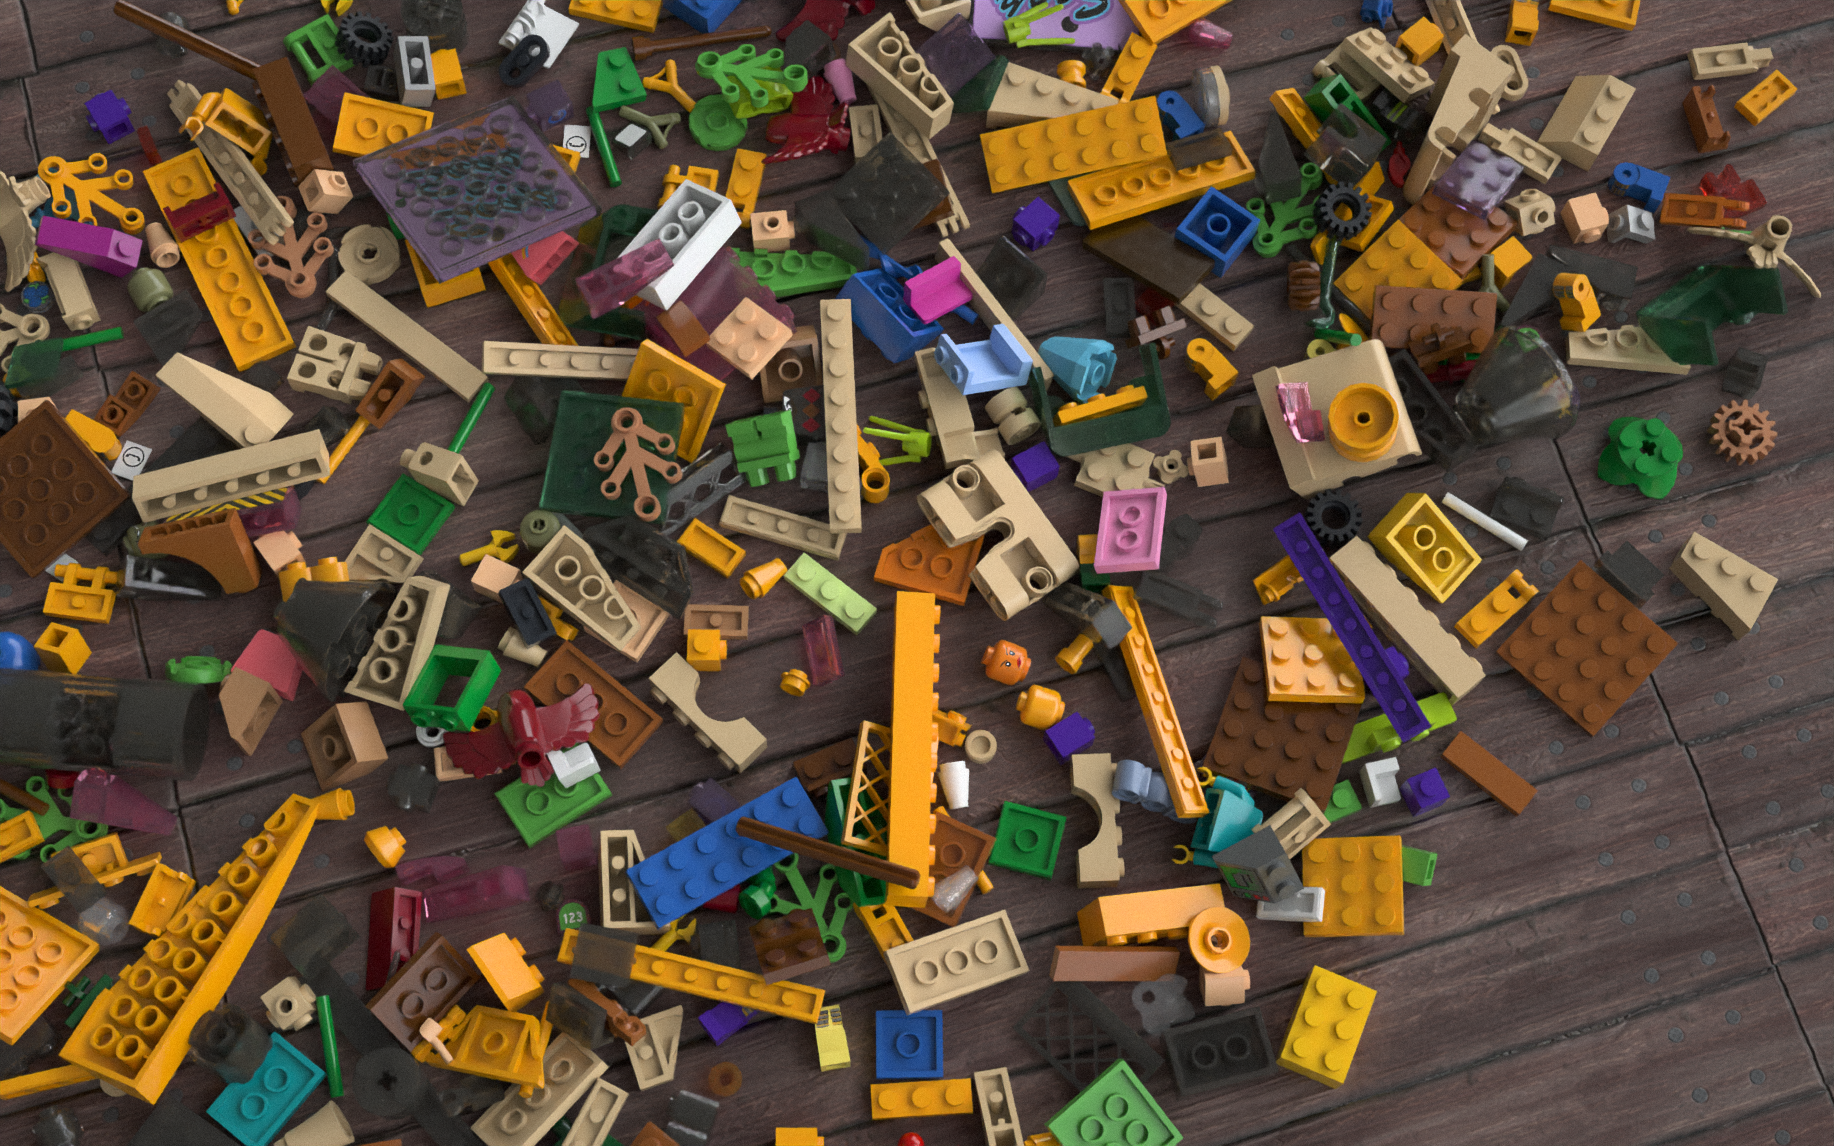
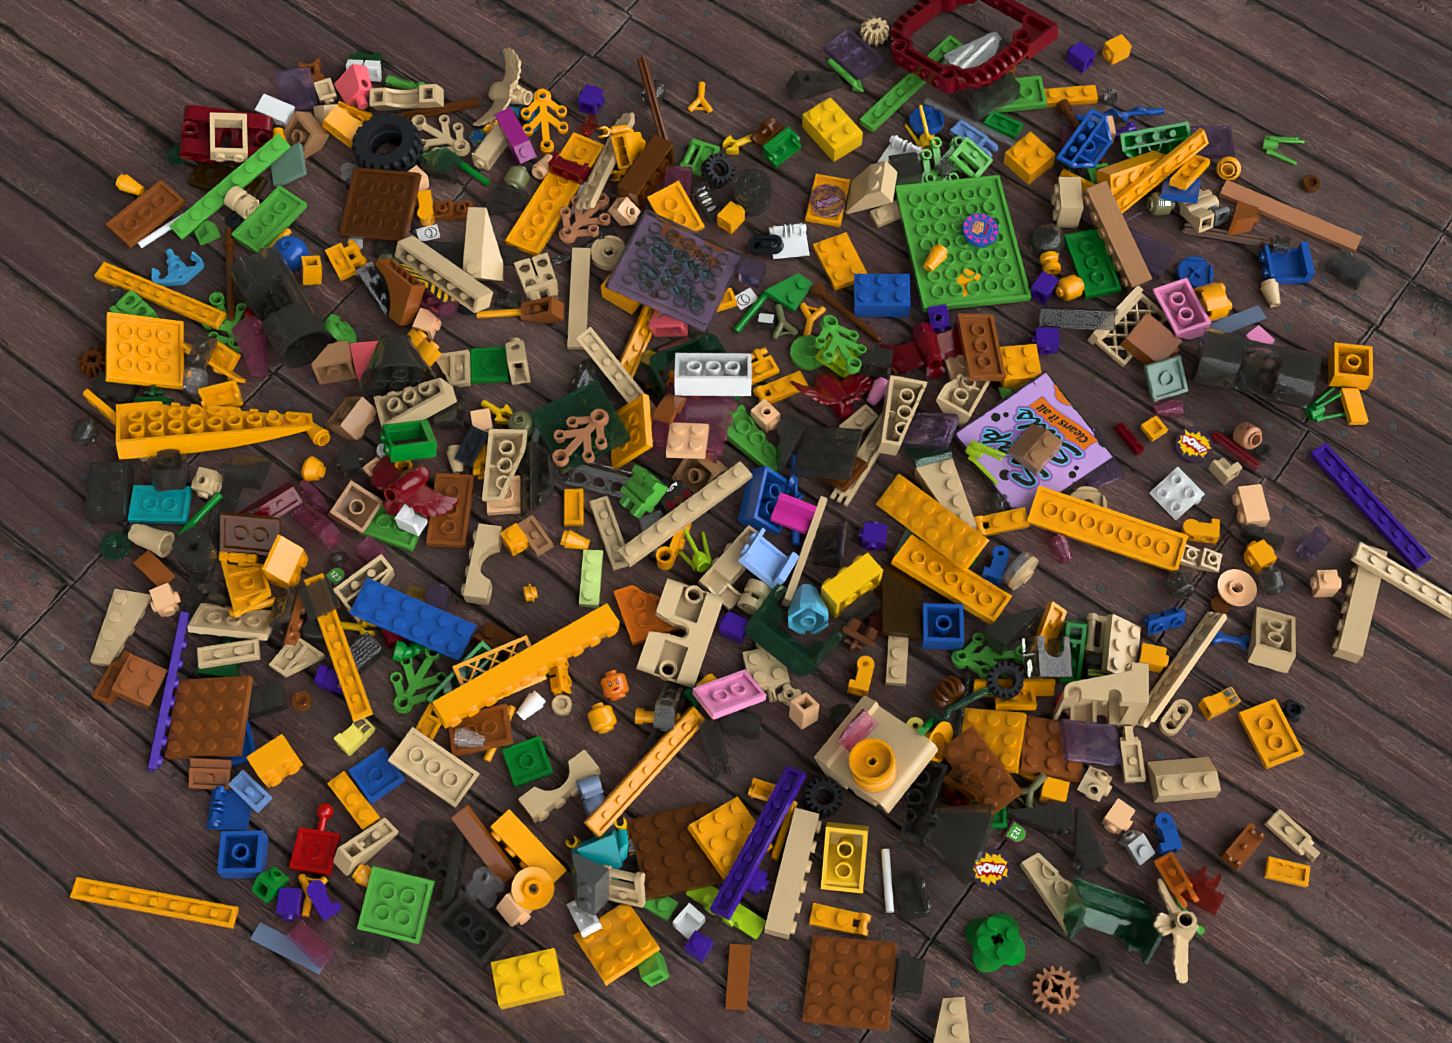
camera: 60 degrees right, 5 degrees down
(414, 71) = (715, 201): light grey brick -> none
(429, 1031) = (232, 550): light nougat hand -> none
(471, 418) = (555, 356): green bar -> none
(492, 825) = (355, 507): none -> medium nougat slope
(622, 278) = (666, 360): clear pink slope -> none
(789, 945) = (384, 680): reddish brown plate -> none
(823, 650) = (552, 598): clear pink plate -> none
(828, 852) = (436, 660): reddish brown axle -> none
(1069, 737) = (596, 743): dark purple brick -> none
(1072, 72) = (976, 496): light orange wheel -> none
(1085, 289) = (851, 583): none -> yellow brick
(1101, 406) = (791, 634): light orange plate -> none
(1198, 149) = (984, 585): clear smoke tile -> none
(1576, 301) = (1059, 842): light orange leg -> none

